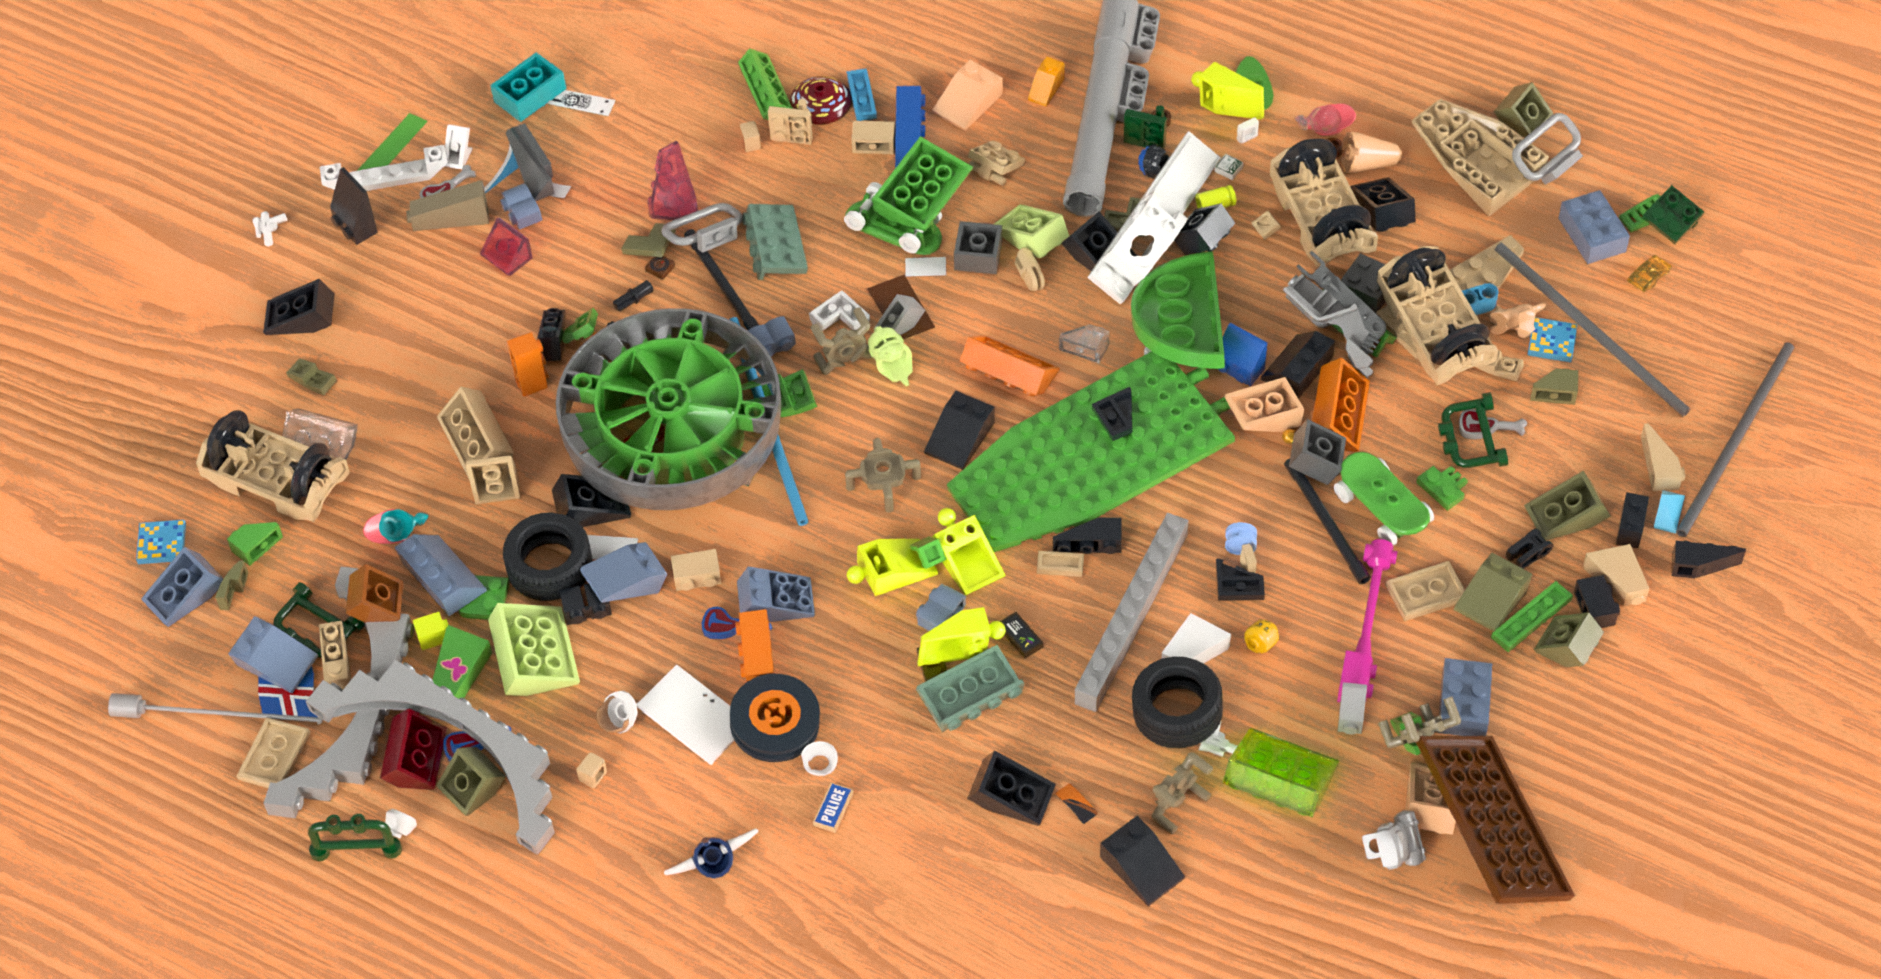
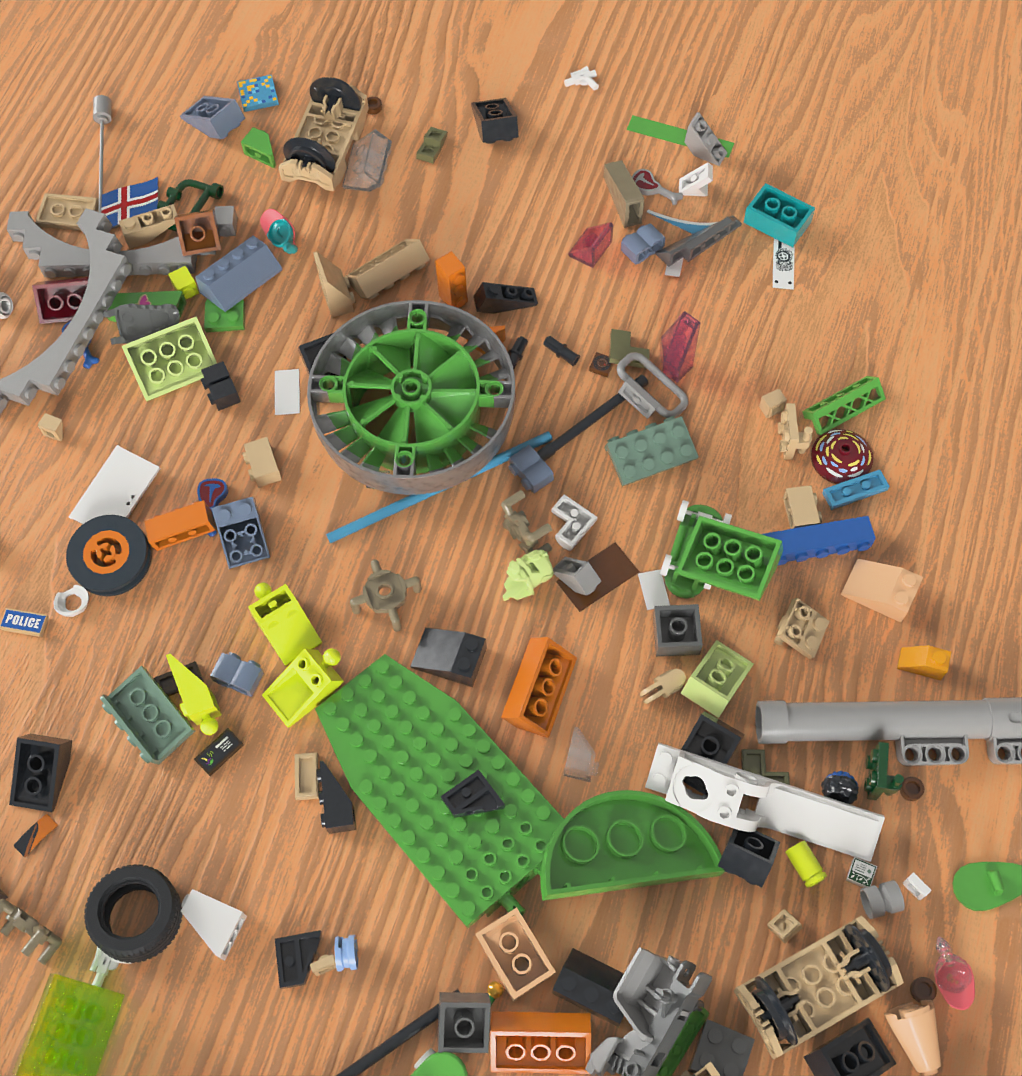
camera: 80 degrees right, 10 degrees up
(232, 582) = (210, 142): olive slope -> none
(272, 655) = (147, 182): sand blue slope -> none
(352, 209) = (602, 125): black slope -> none
(393, 174) = (652, 136): white slope -> none
(408, 131) = (703, 141): none -> light grey slope
(470, 779) = (39, 341): olive slope -> none
(482, 665) = (138, 320): none -> dark grey animal
(538, 531) = (258, 322): black tyre -> none
(583, 326) = (512, 316): bright green hinge -> none
(617, 712) = (106, 433): white piece -> none
(625, 573) = (242, 404): sand blue slope -> none
(795, 394) = (472, 499): bright green slope -> none
(929, 551) = (293, 646): bright green panel -> none
(1131, 612) = (249, 853): light grey brick -> none
(1229, 92) = (958, 852): neon yellow slope -> none
(1243, 355) = (584, 920): blue slope -> none
(1255, 153) = (882, 899): none -> light grey wheel
(1261, 636) = (228, 991): yellow head -> none

